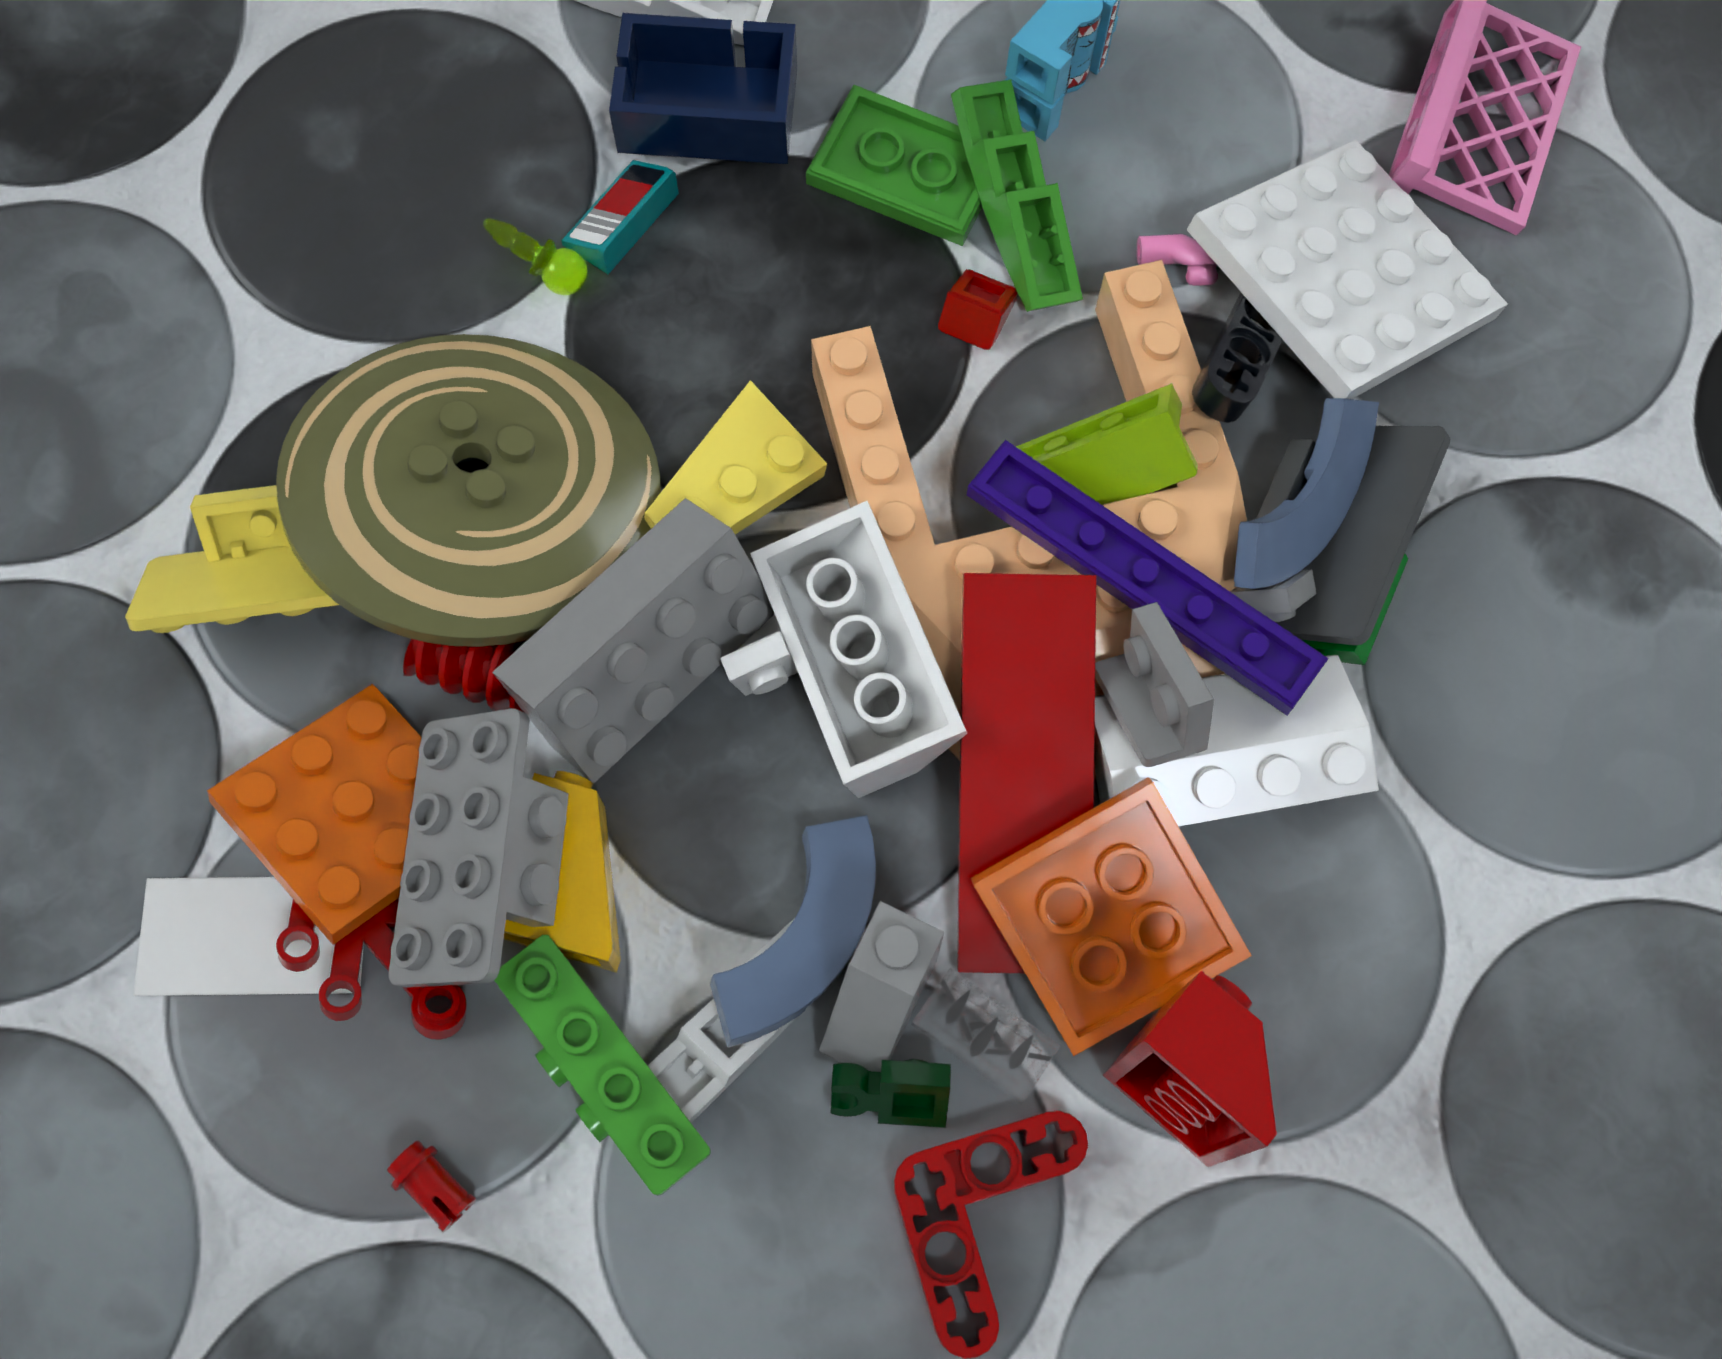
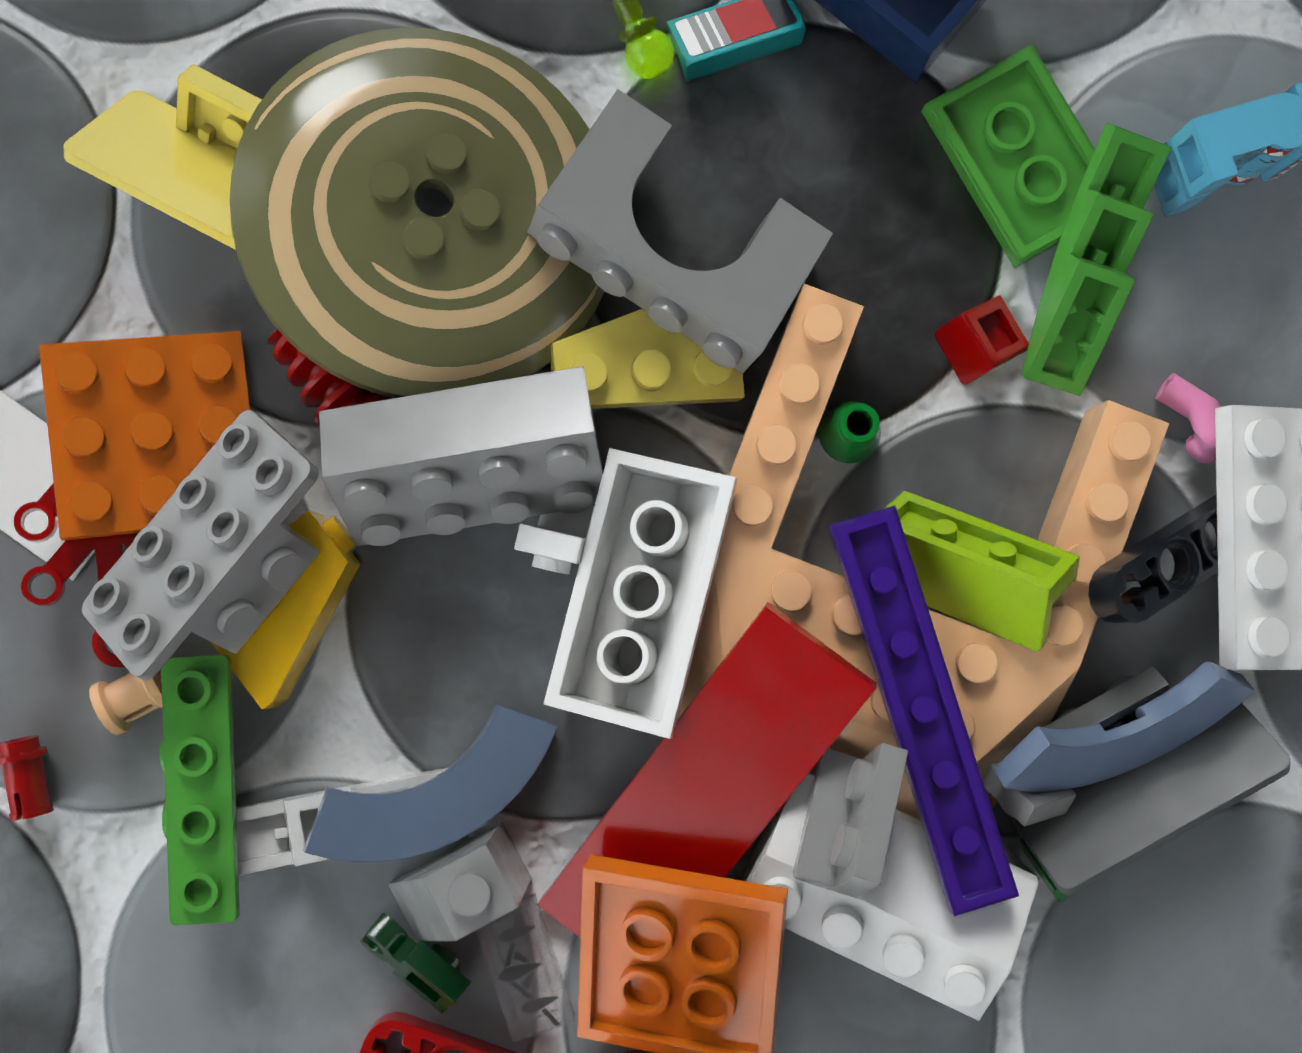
camera: 35 degrees right, 15 degrees up
(483, 1041) = (125, 700): none -> light nougat bush
(621, 401) = (593, 225): none -> light grey arch
(930, 429) = (839, 441): none -> green cone

